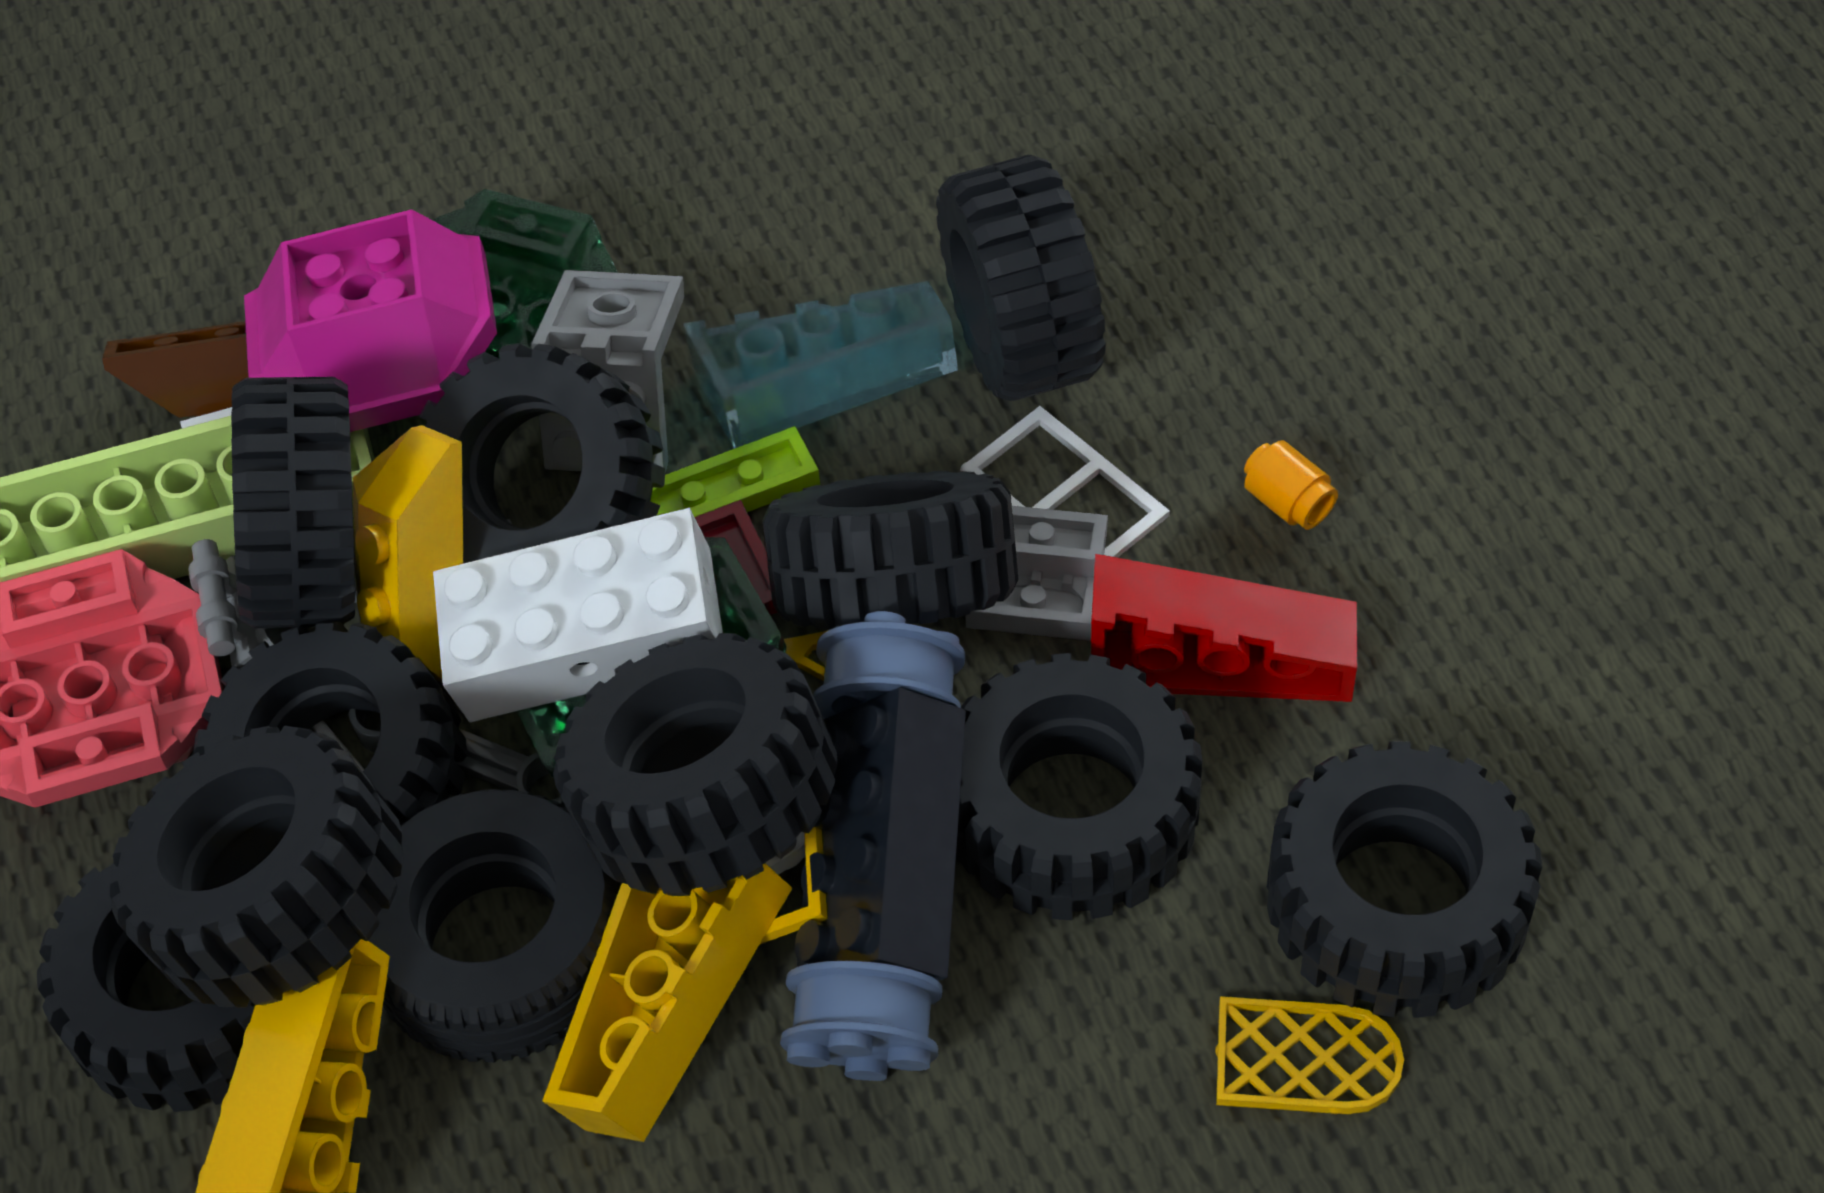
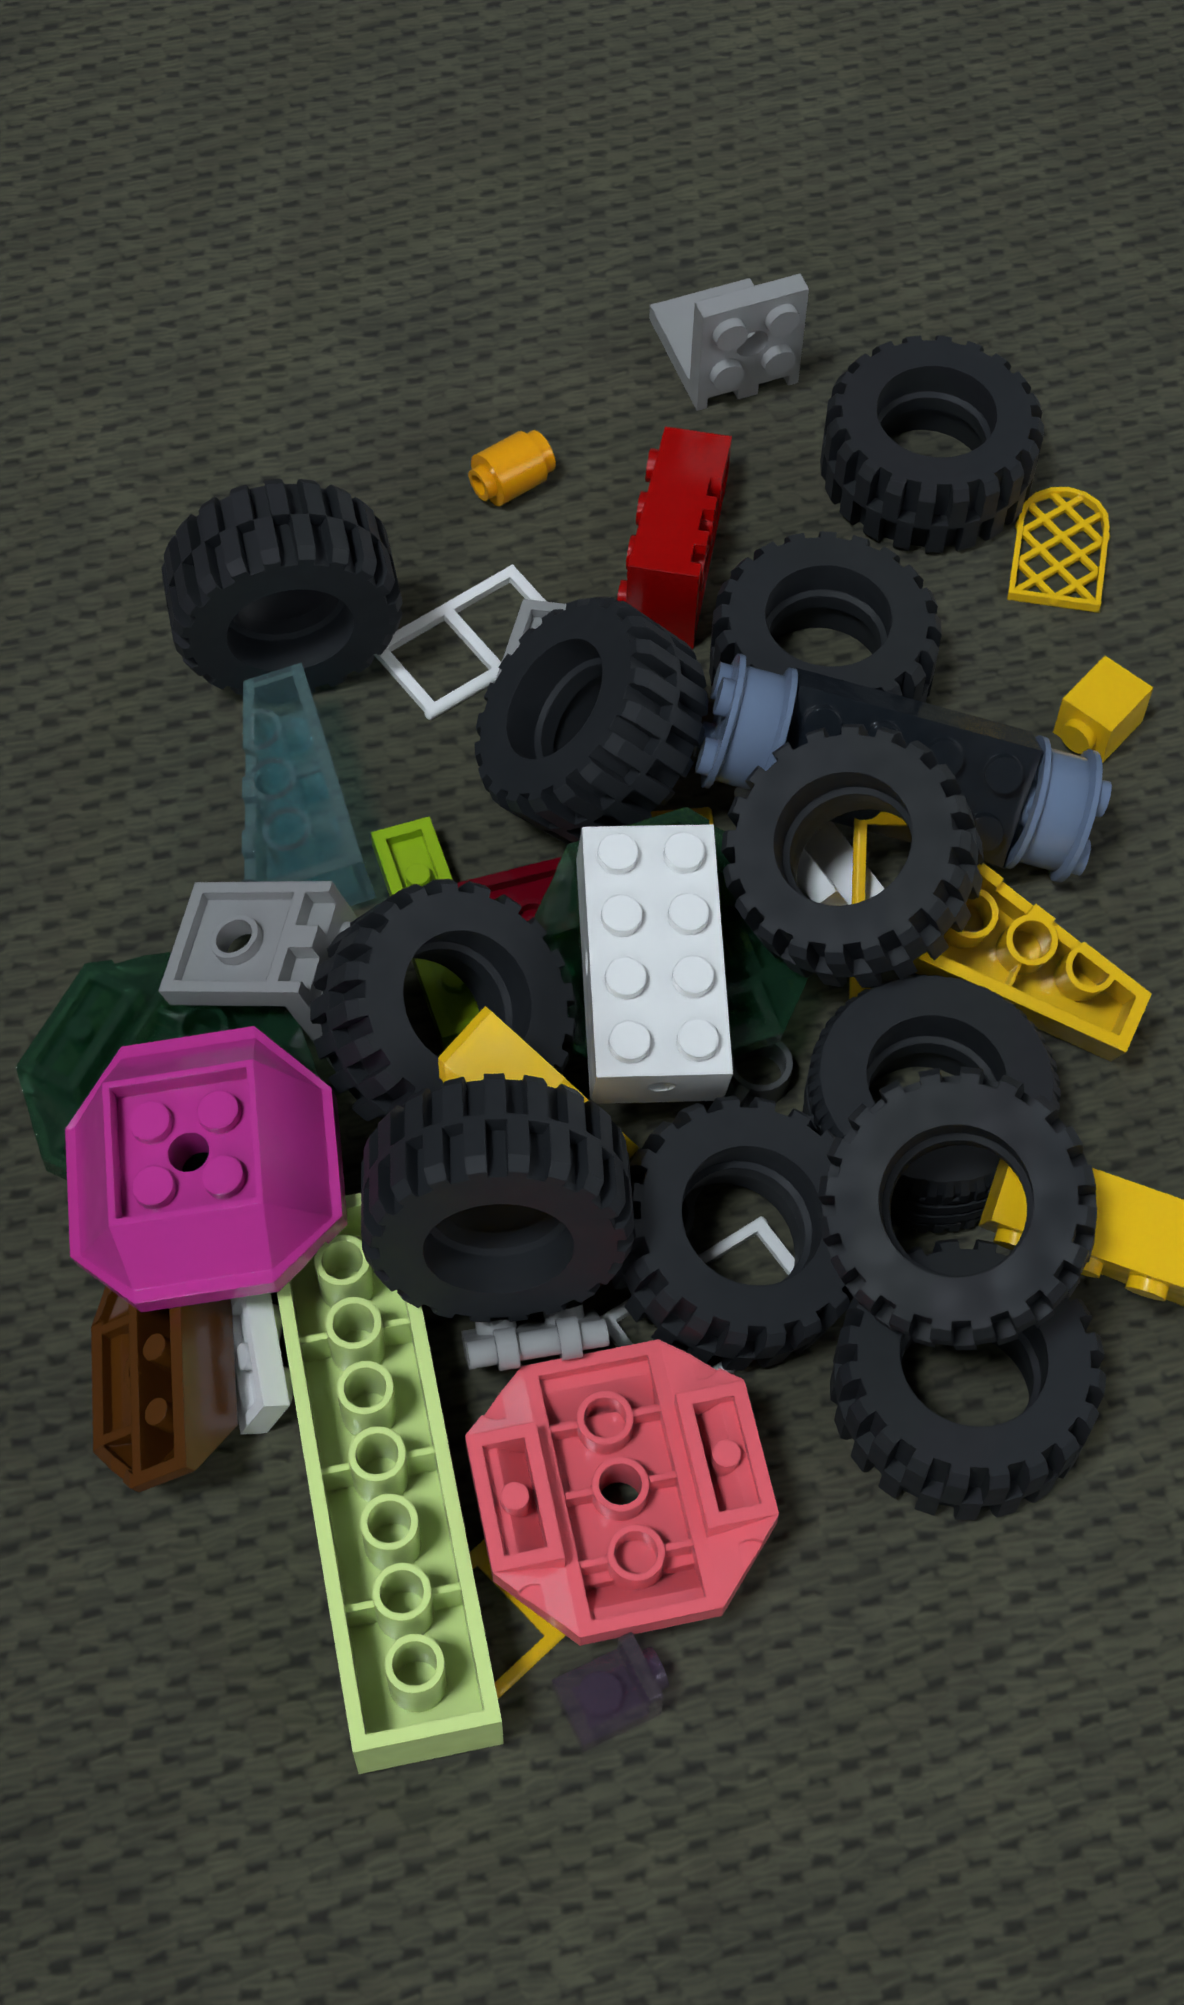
camera: 90 degrees left, 5 degrees up
(1041, 1093) = (1102, 709): none -> yellow brick
(1510, 670) = (734, 336): none -> light grey bracket

